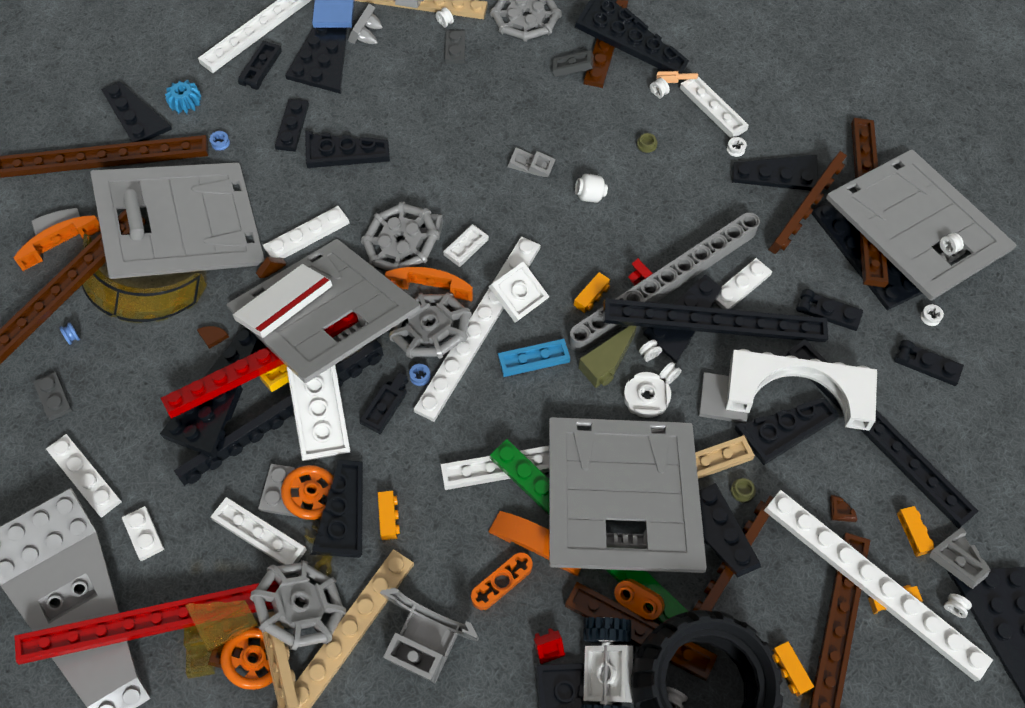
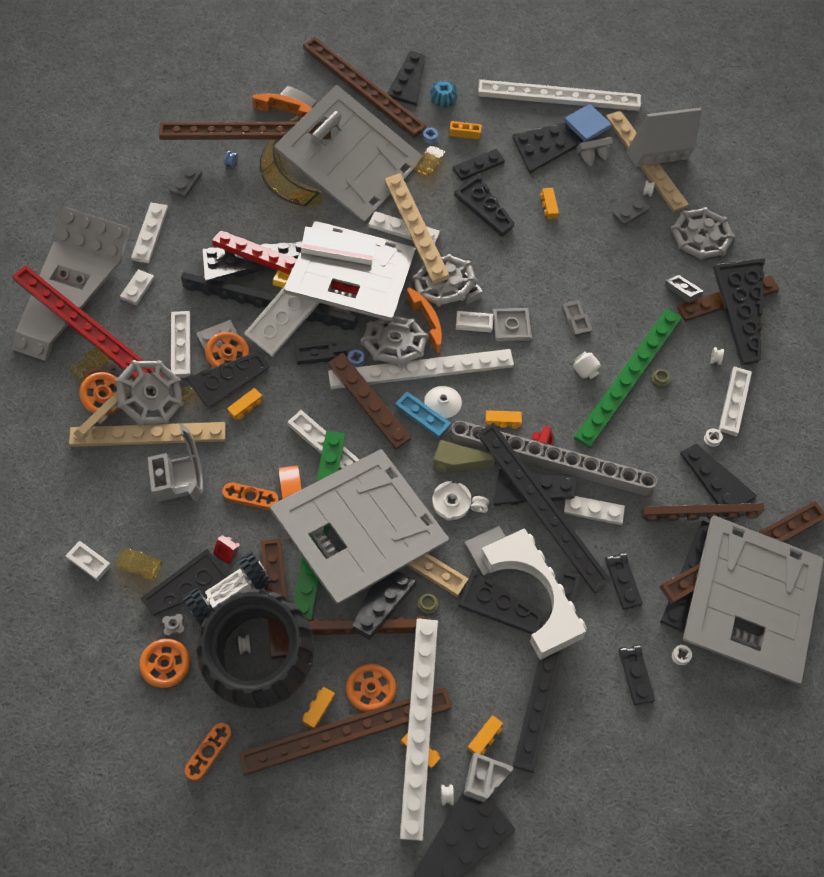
camera: 50 degrees right, 0 degrees up
(212, 335) = (290, 230): reddish brown tile -> none
(221, 621) = (108, 359): clear yellow wing -> none
(243, 108) = (465, 130): none -> light orange piece
(249, 160) = (430, 160): none -> clear yellow slope
(259, 65) = (507, 115): black plate -> none
(270, 266) = (363, 226): reddish brown tile -> none
(321, 220) = (417, 229): none -> tan plate
(390, 99) = (549, 203): none -> light orange piece
(481, 394) = (369, 401): none -> reddish brown plate
(495, 217) = (512, 324): none -> light grey tile
(519, 291) = (462, 373): white plate -> none
(522, 337) = (444, 408): none -> white dish
(627, 169) = (627, 378): none -> green plate
(638, 598) = (295, 581): orange plate -> none
(650, 350) = (487, 481): white bush -> none
(674, 77) = (735, 358): light nougat axle -> none
(811, 587) = (357, 676): none -> orange plate
(841, 510) = (463, 677): reddish brown tile -> none
(951, 243) = (751, 629): white bush -> none

